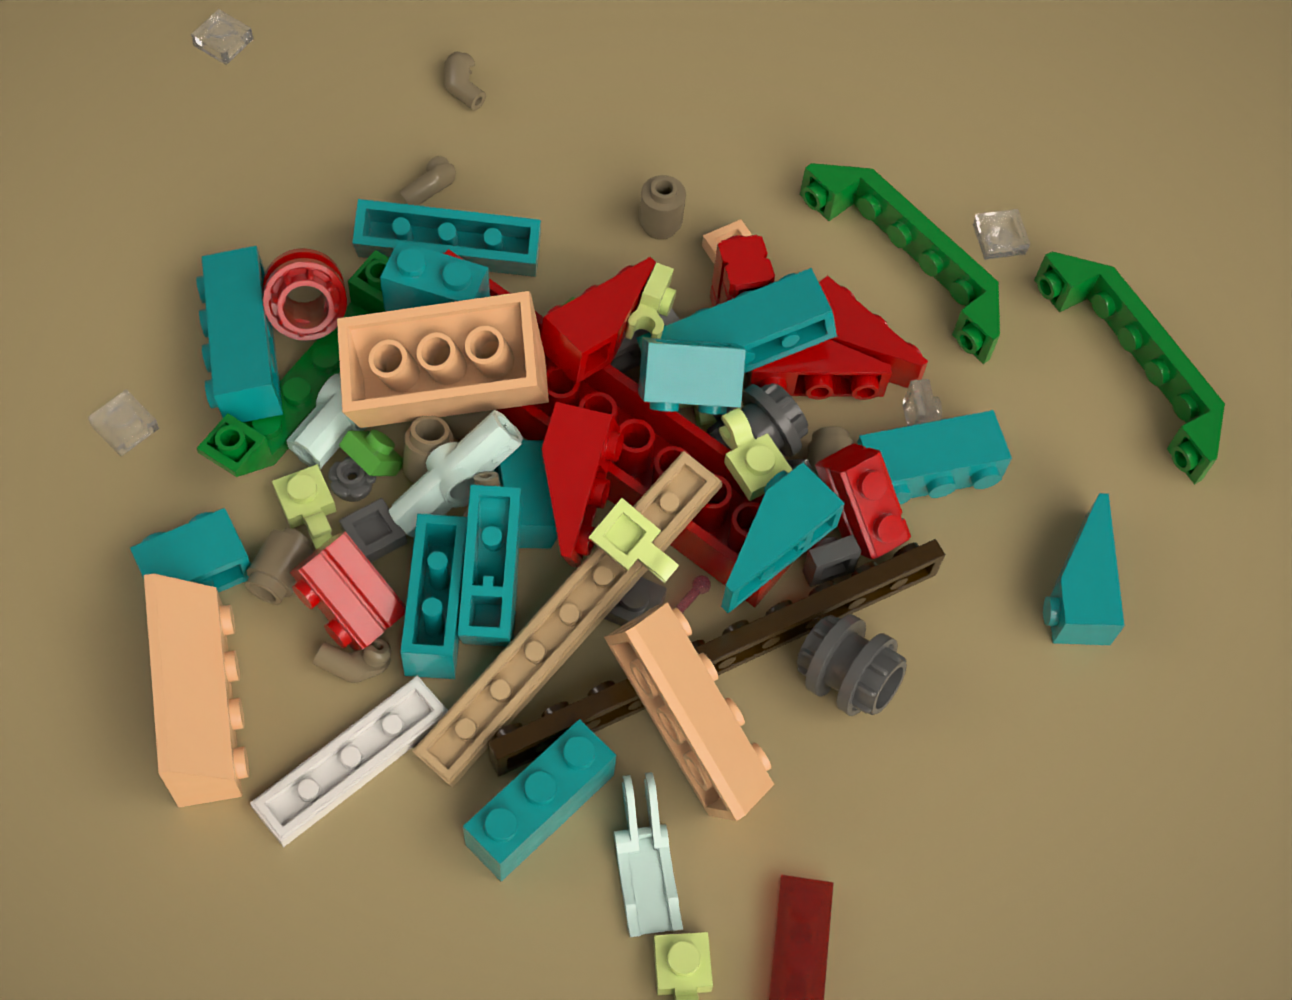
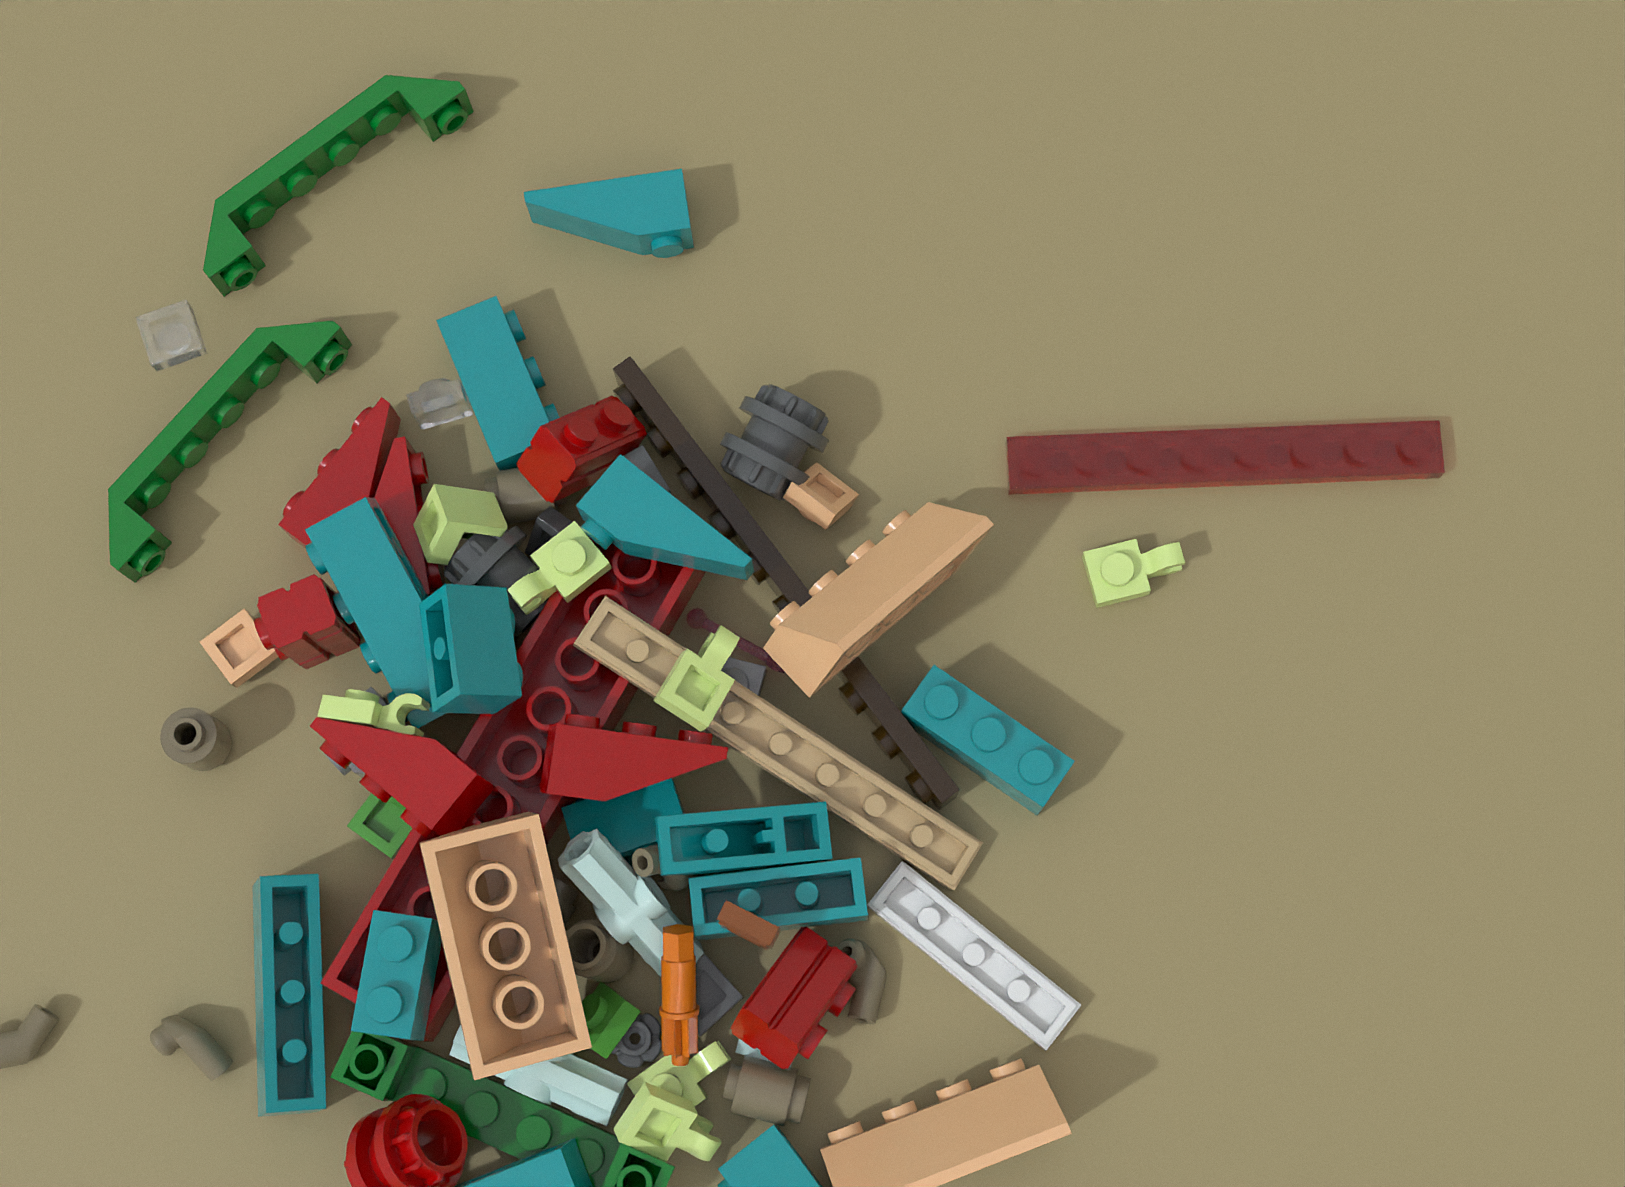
camera: 90 degrees left, 15 degrees up
(273, 478) = (661, 1122): none -> yellowish green plate
(367, 500) = (679, 1004): none -> orange piece
(412, 545) = (748, 926): none -> dark orange tile
(646, 867) = (1025, 625): light aqua arm -> none
(796, 702) = (821, 497): none -> light nougat plate
(814, 395) = (456, 514): none -> yellowish green panel

